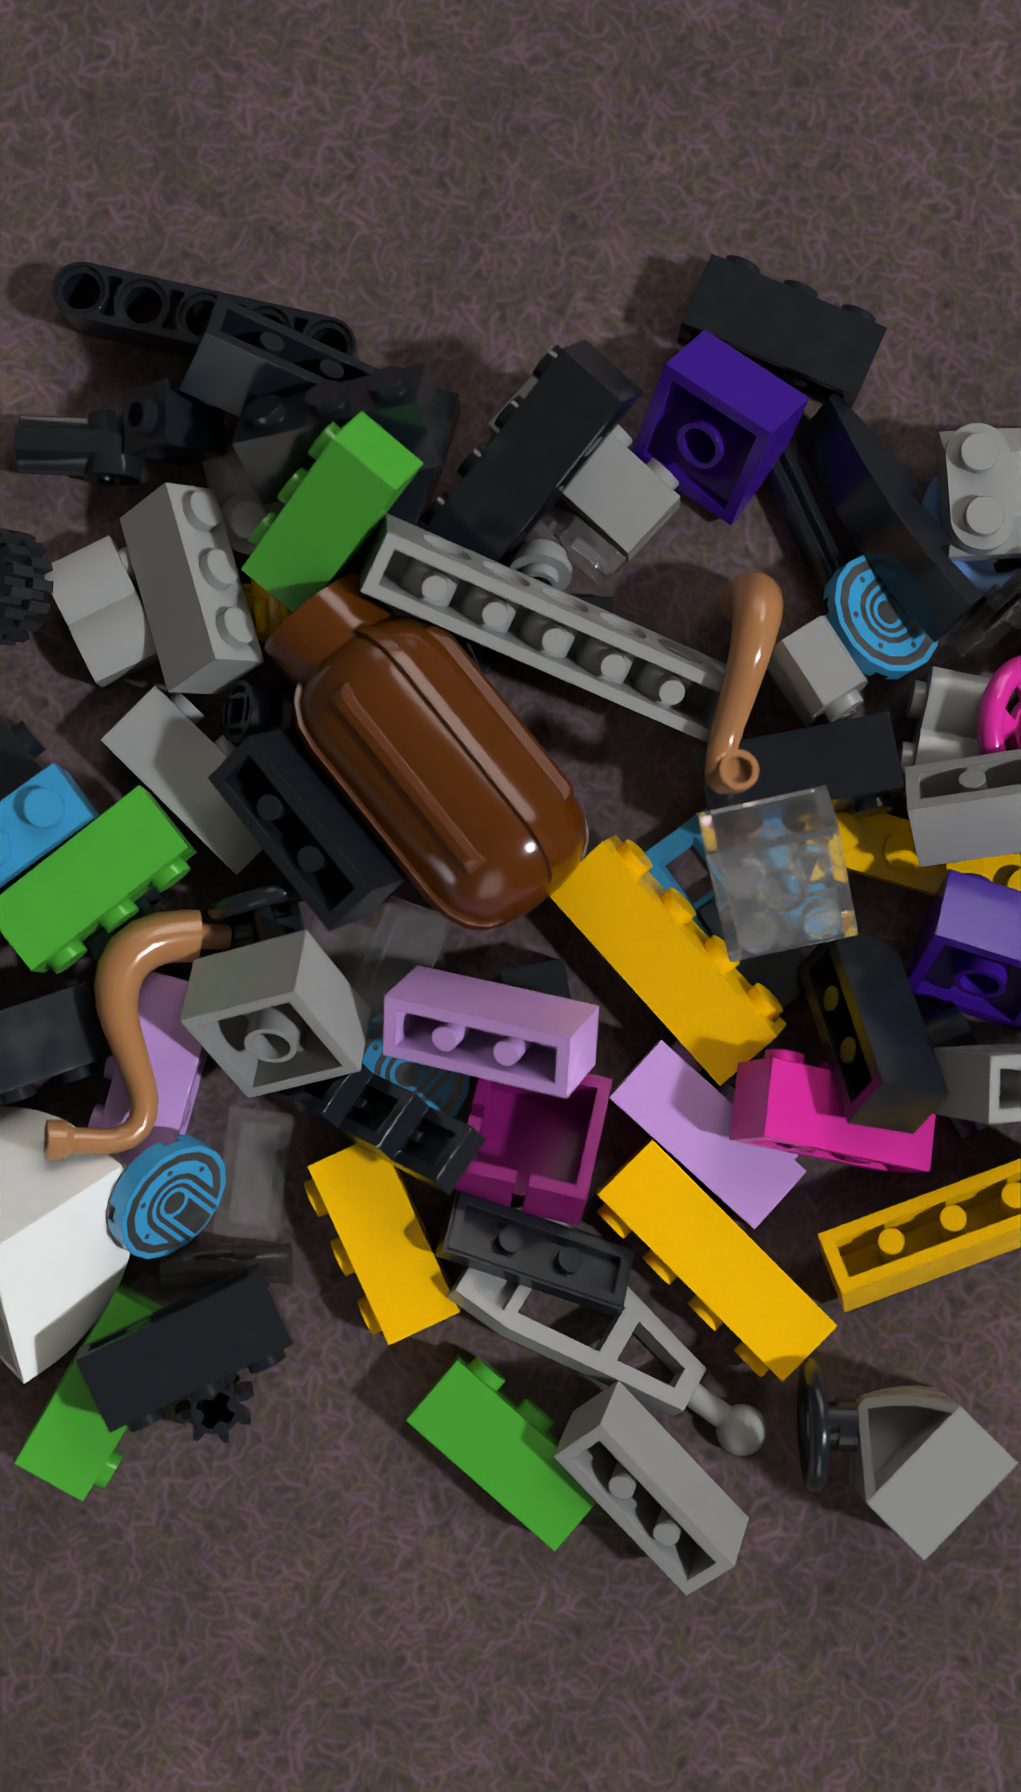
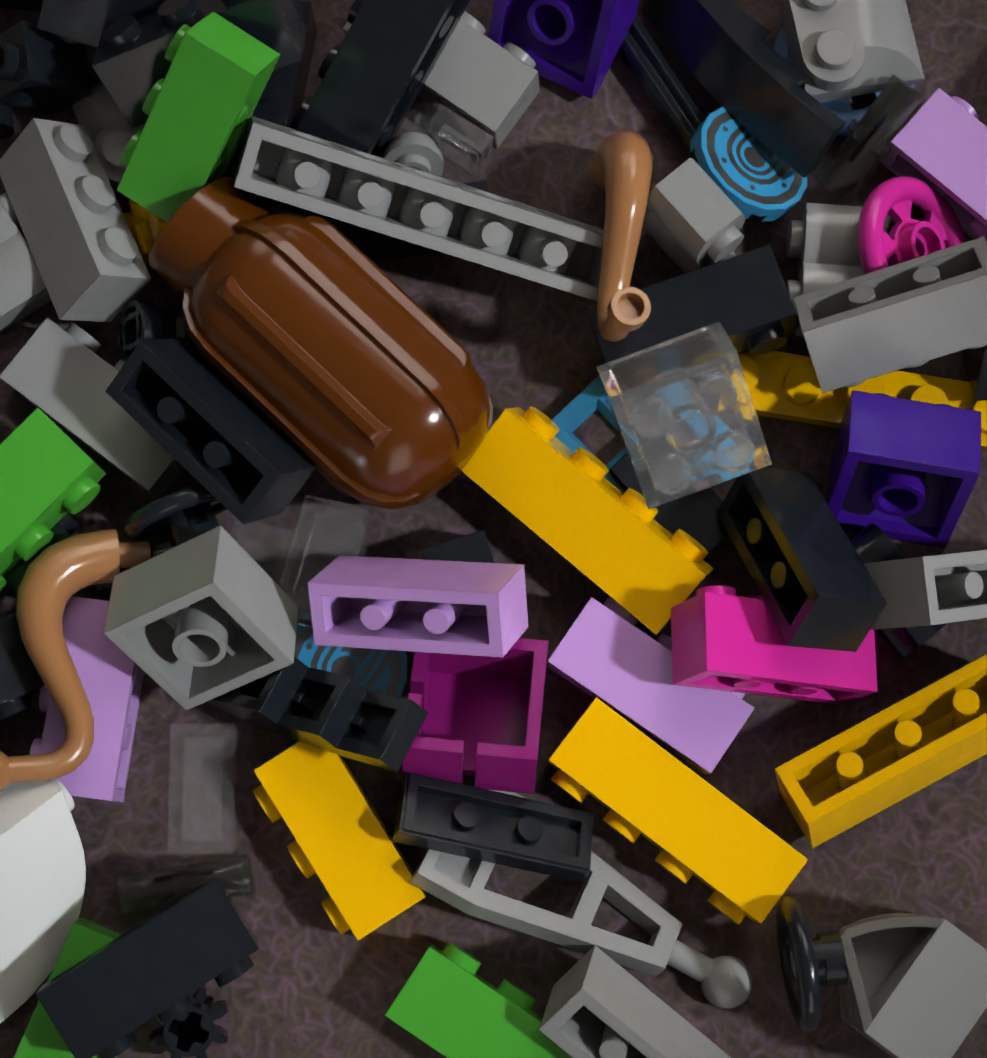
camera: 10 degrees left, 5 degrees down
(166, 1196) = (114, 819): dark azure tile -> none

